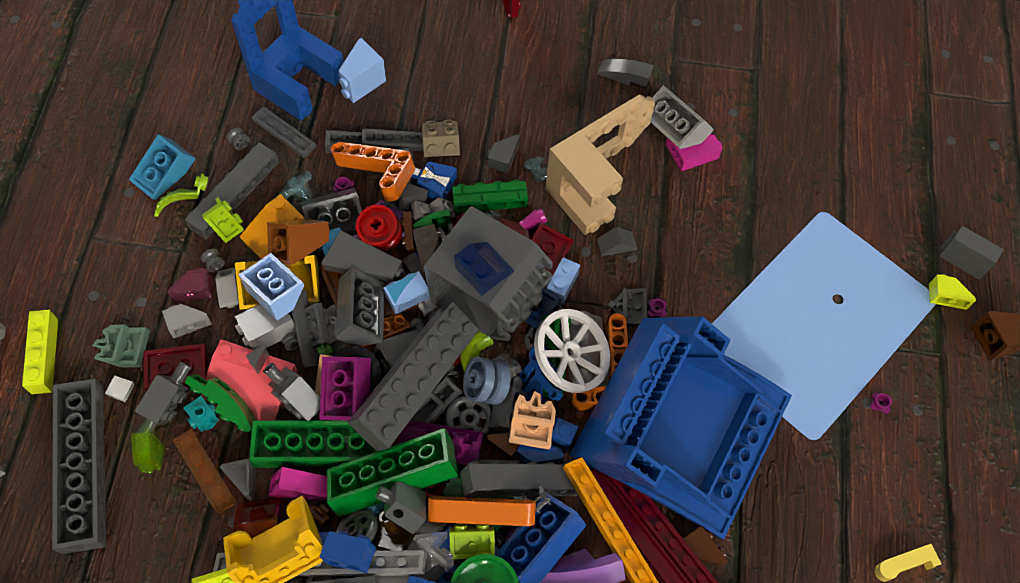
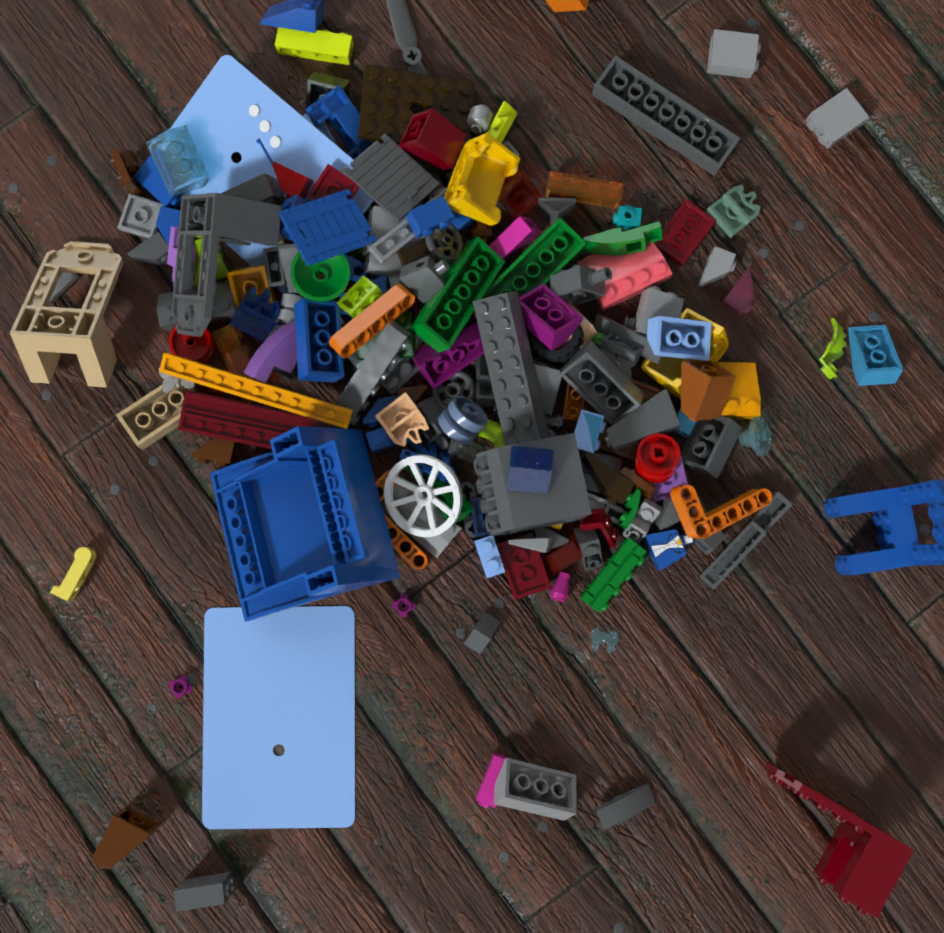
camera: 140 degrees right, 20 degrees up
(40, 352) = (781, 154): neon yellow brick -> none
(119, 388) = (702, 185): white tile -> none
(147, 452) = (632, 163): clear neon green slope -> none
(162, 399) = (660, 199): dark grey brick -> none
(212, 260) = (750, 324): dark grey wheel -> none
(223, 220) = (776, 357): lime bracket -> none
(227, 288) = (717, 315): light grey slope -> none
(234, 186) = (801, 389): dark grey brick -> none
(238, 139) = (848, 433): dark grey wheel -> none
(257, 358) = (628, 279): dark grey slope -> none
(284, 132) = (825, 475): dark grey tile -> none
(342, 181) = (734, 475): magenta plate -> none
(361, 72) = (825, 580): light blue slope -> none
(431, 543) = (382, 268): clear slope -> none
(440, 138) = (703, 590): dark tan bracket -> none
(503, 154) = (641, 623): dark grey slope -> none
(543, 495) = (344, 371): dark grey piece -> none
(581, 175) = (556, 649): tan bracket -> none
(632, 305) = (423, 589): dark grey slope -> none
(949, 292) = (197, 838): neon yellow slope -> none

